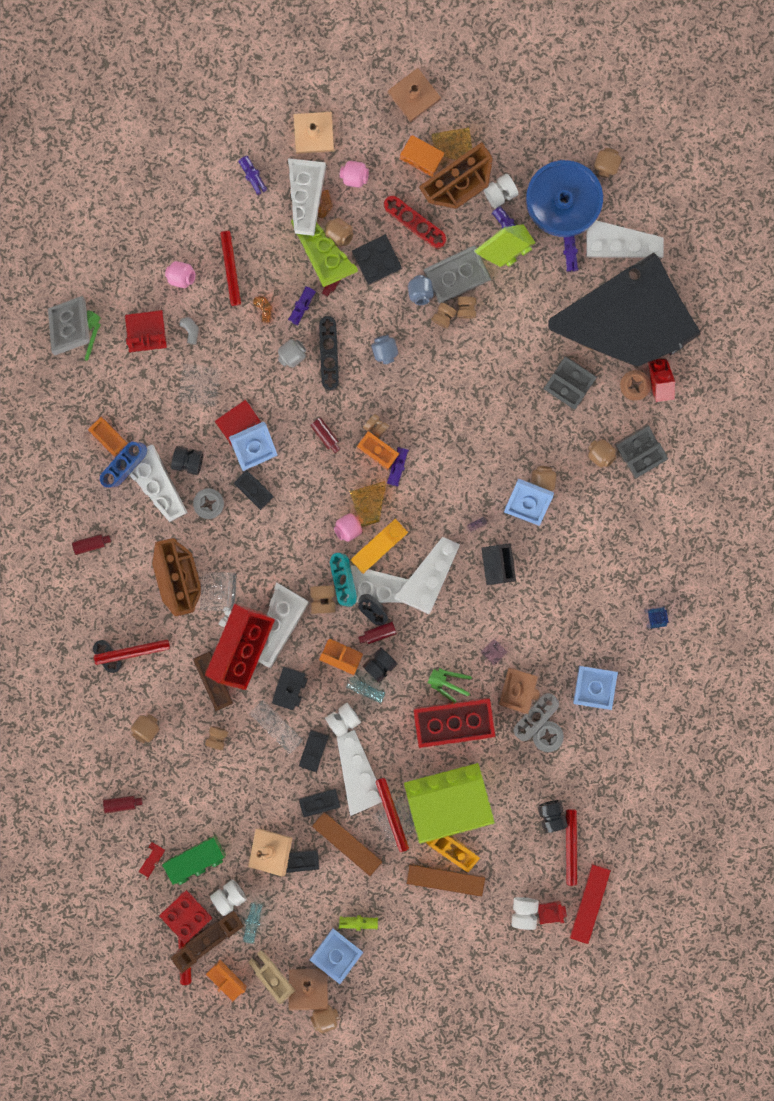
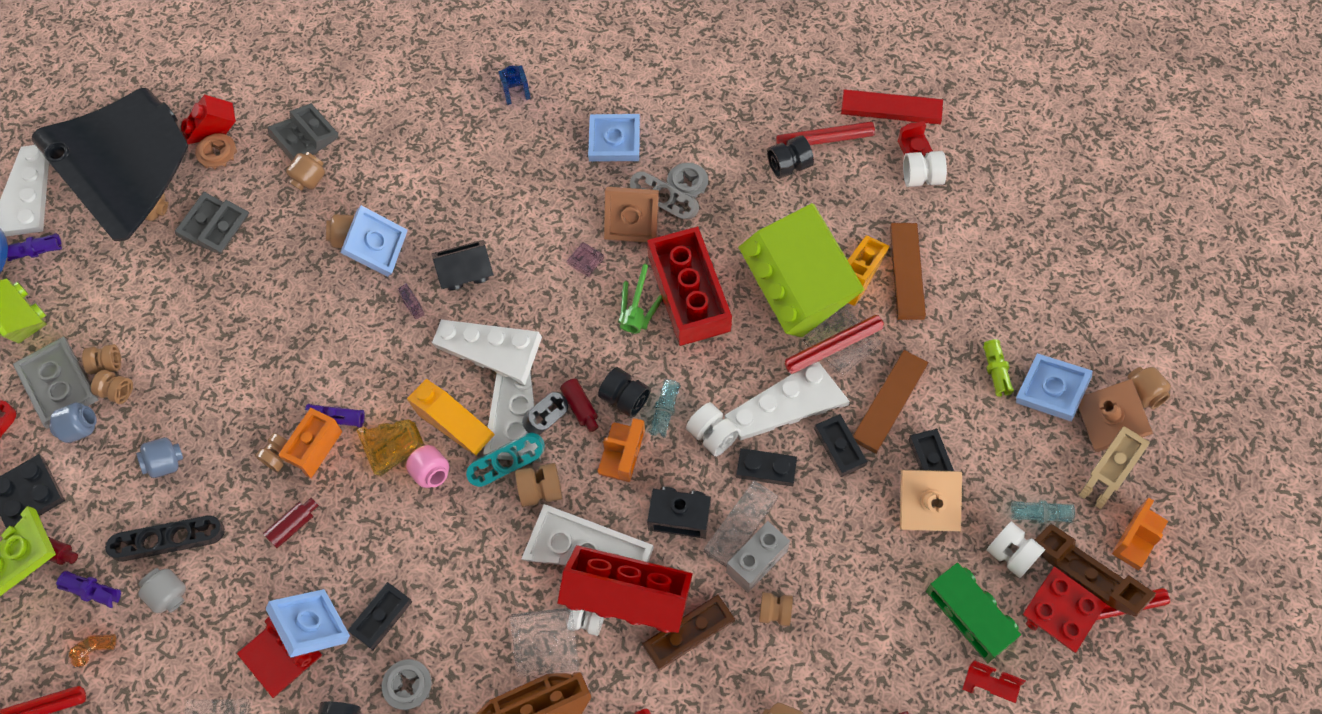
camera: 90 degrees left, 25 degrees down
(251, 733) = (757, 556): none -> light grey brick

